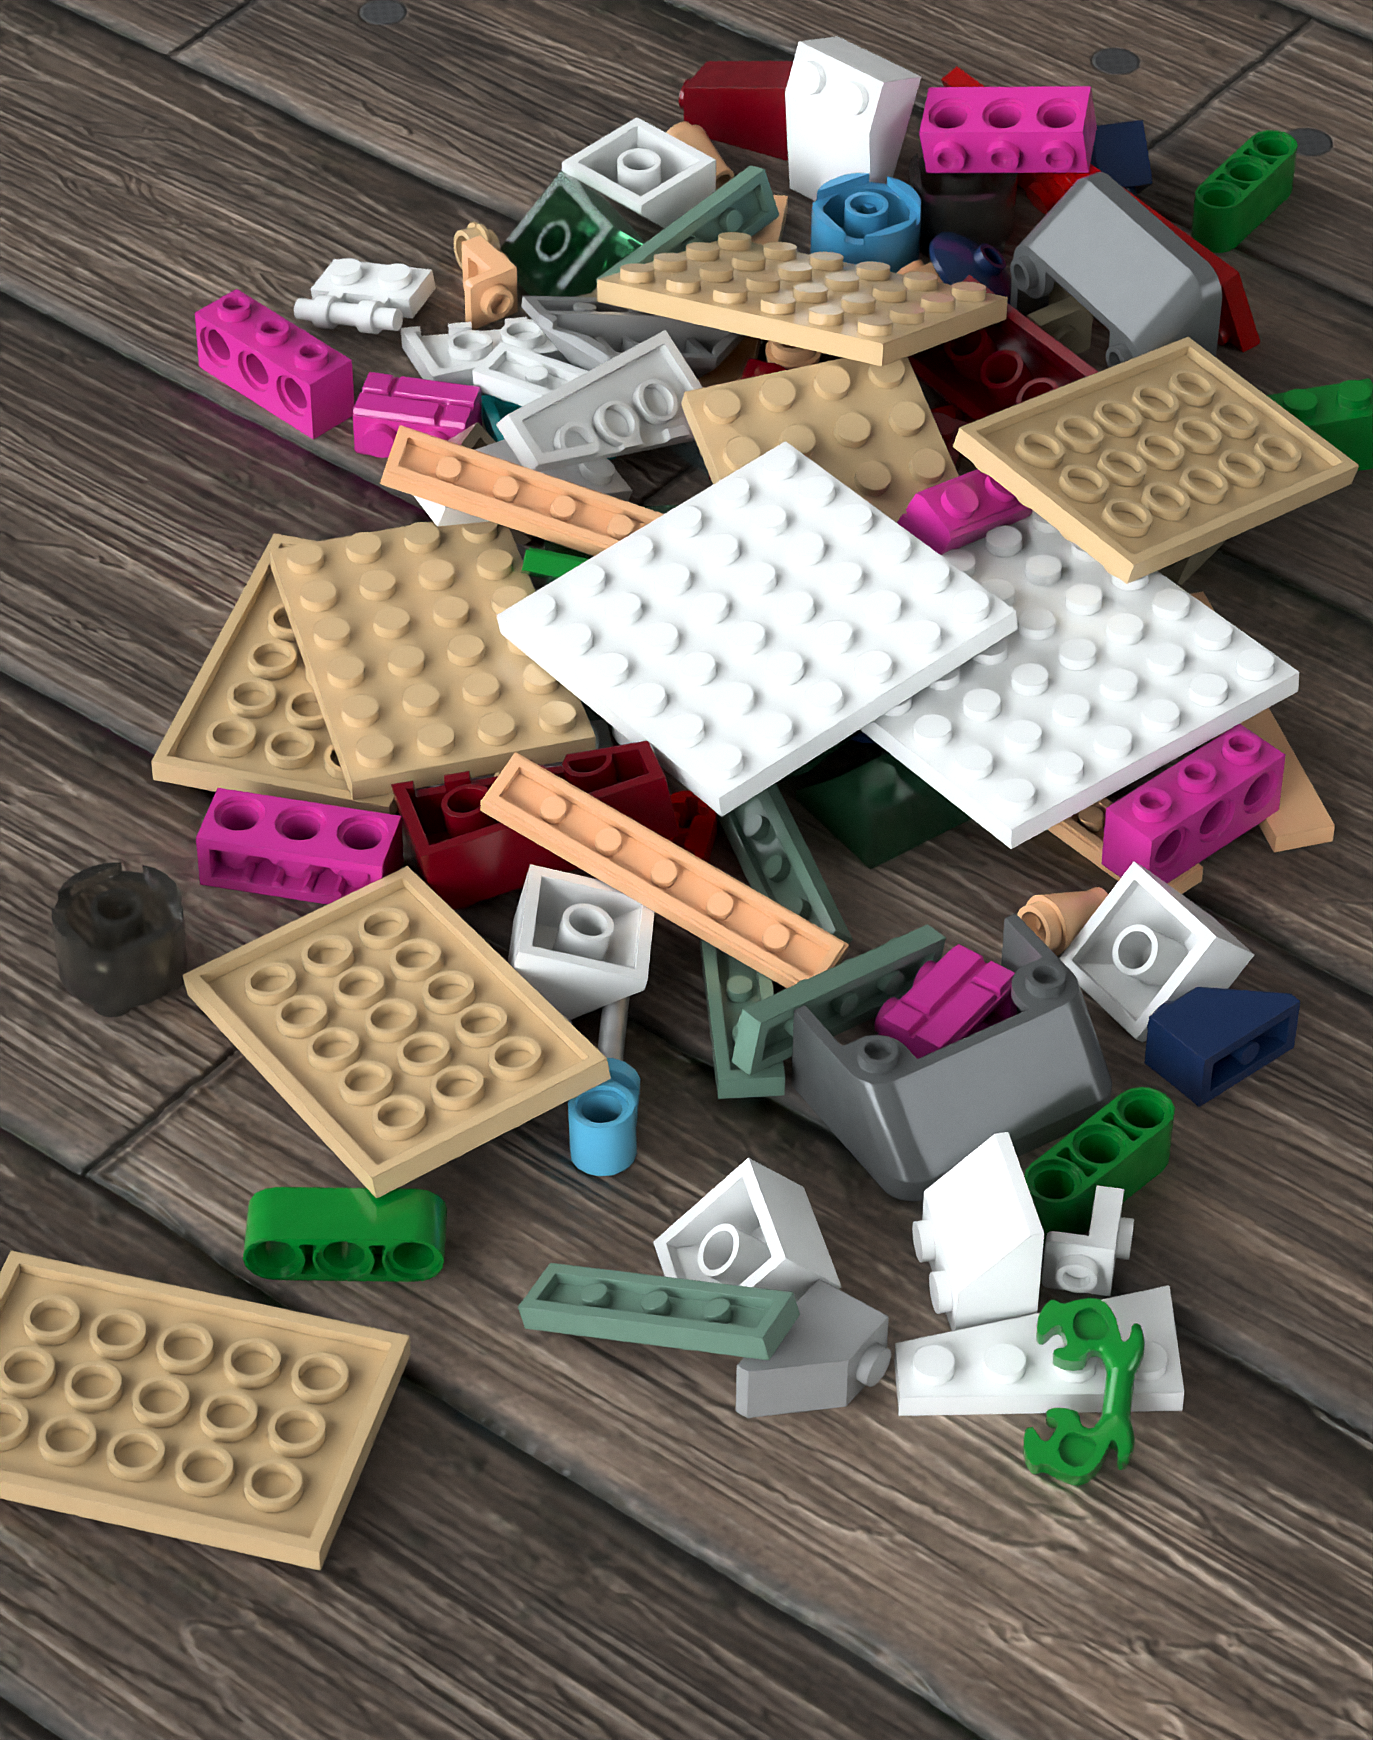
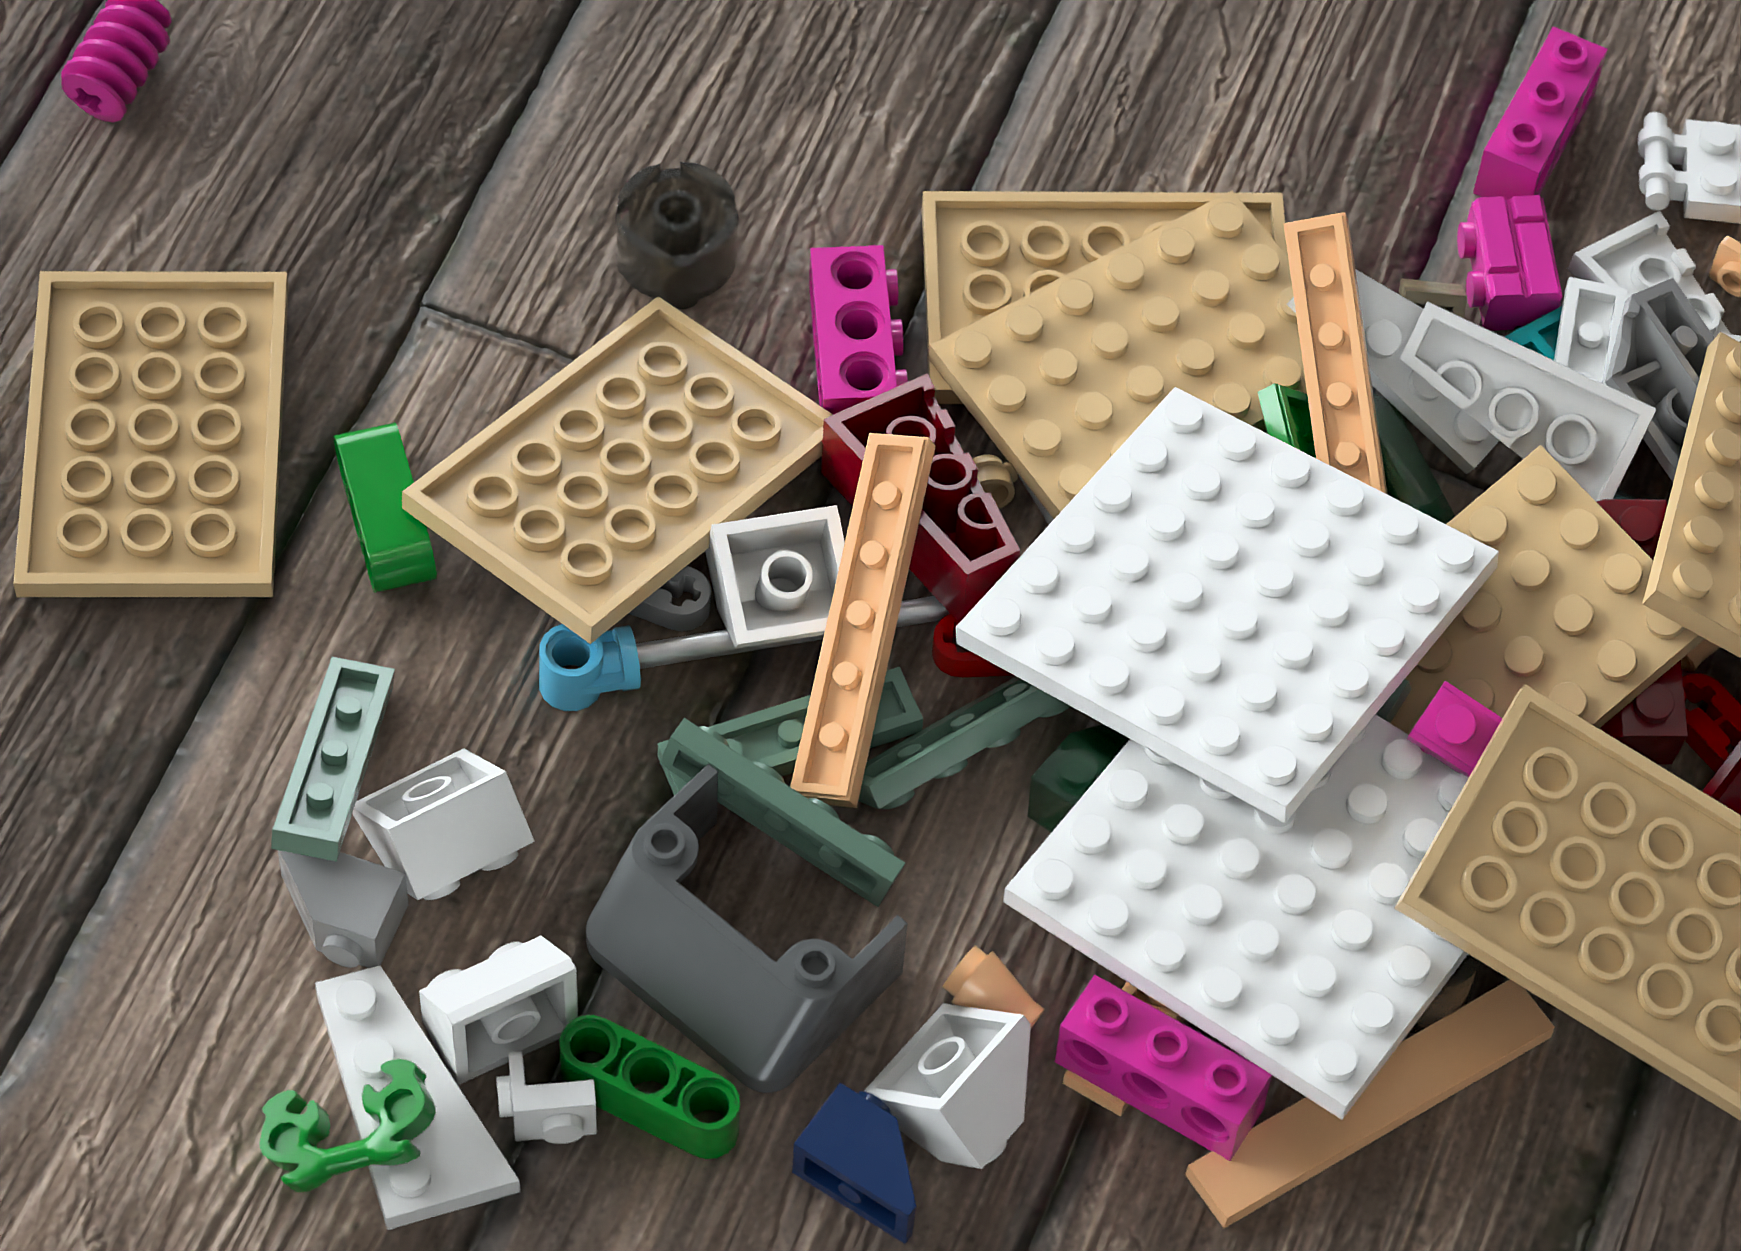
camera: 70 degrees right, 15 degrees up
(948, 1002) = (796, 903): dark pink brick -> none

